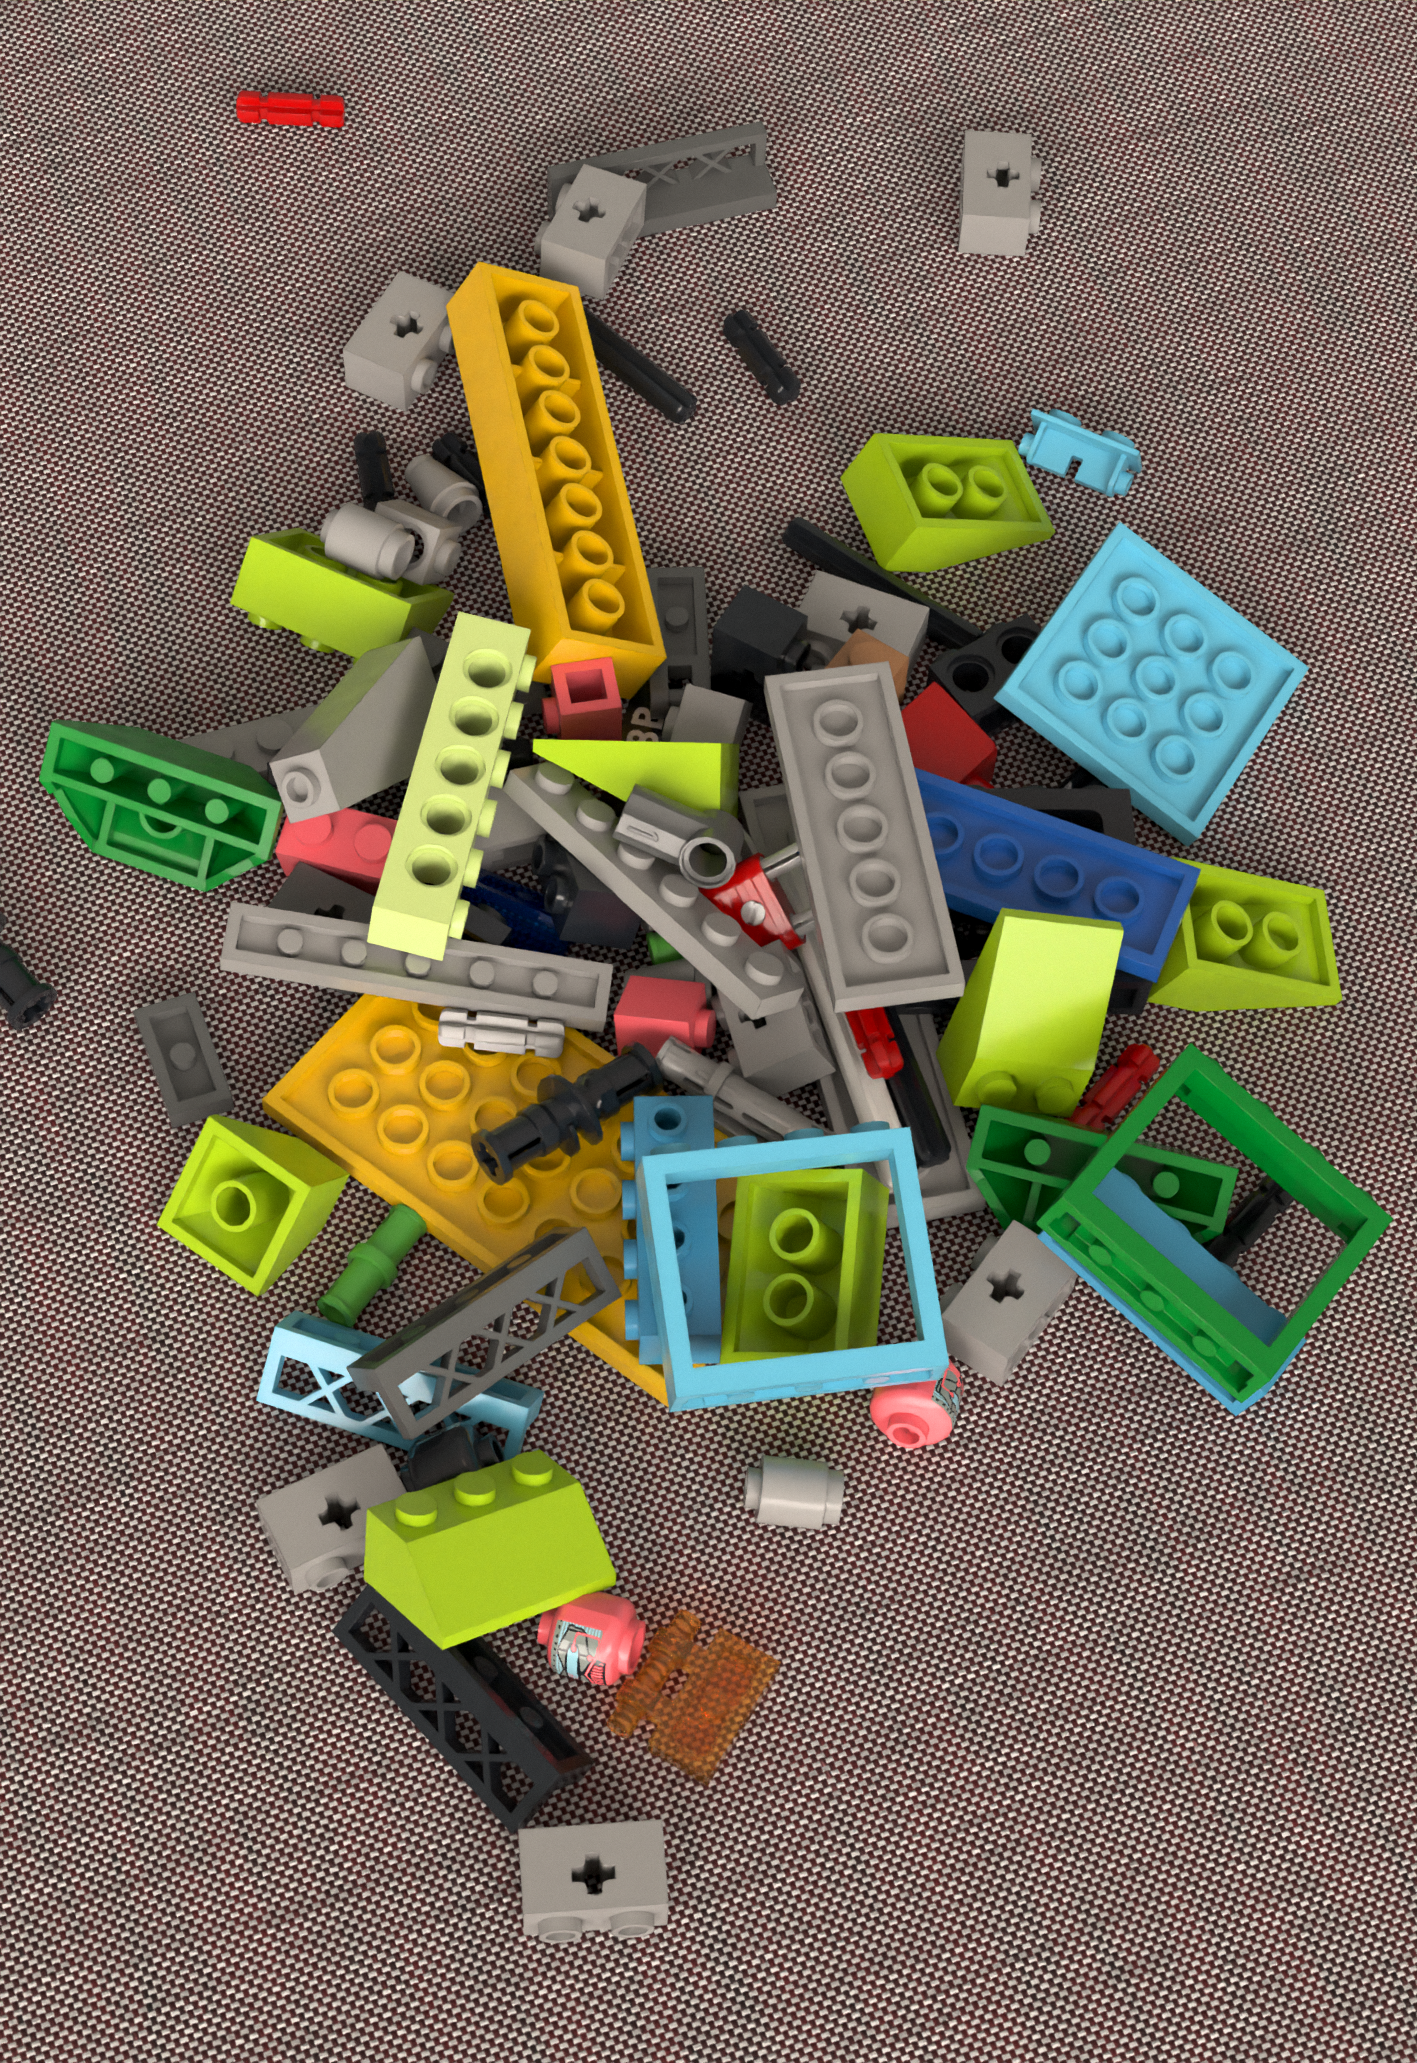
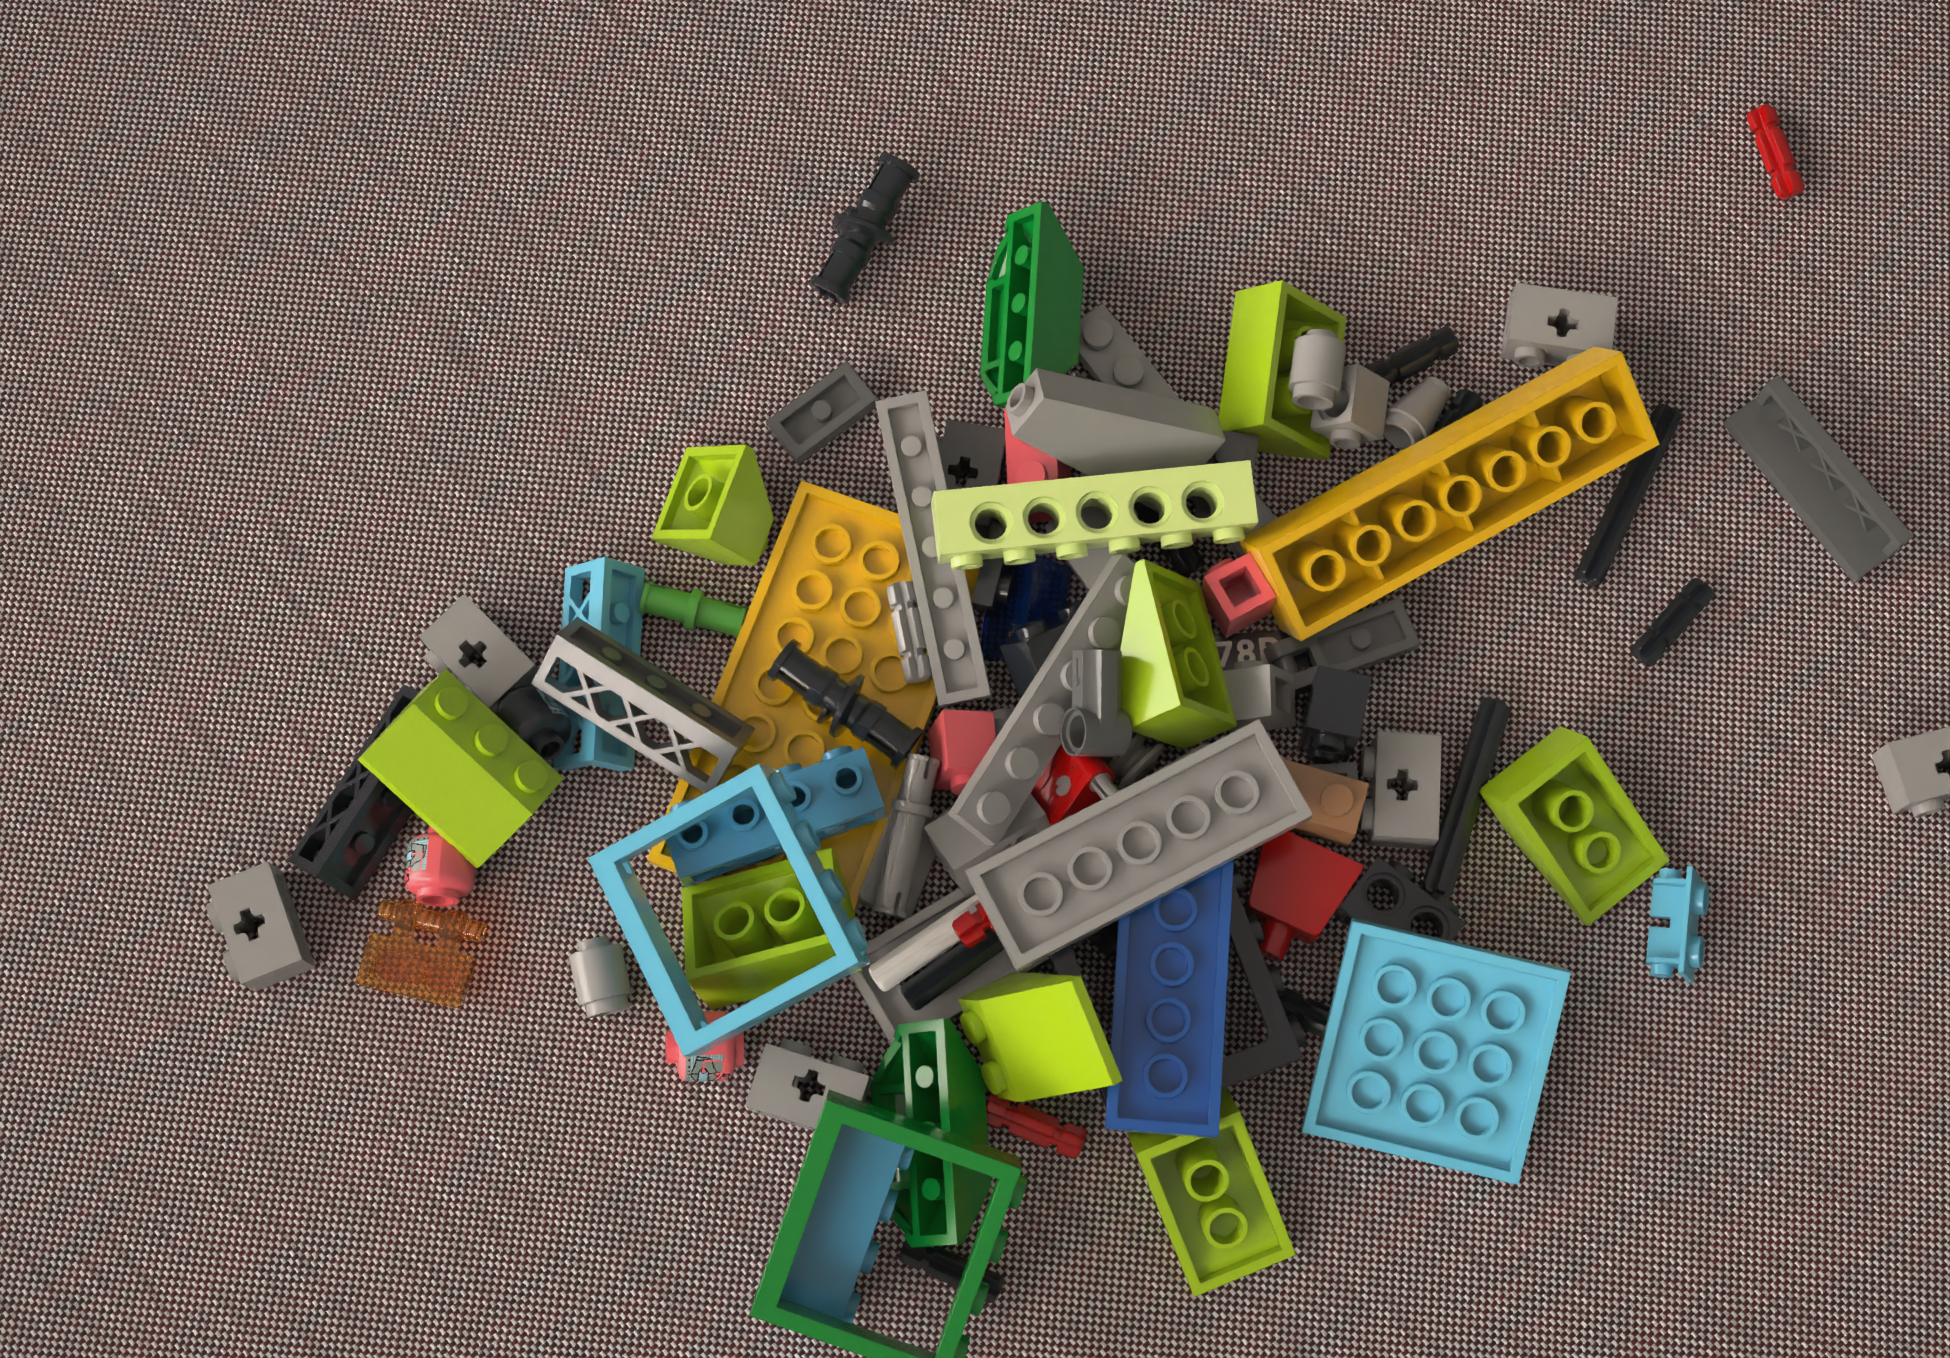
camera: 80 degrees right, 15 degrees up
(591, 230) = (1707, 448): light grey brick -> none

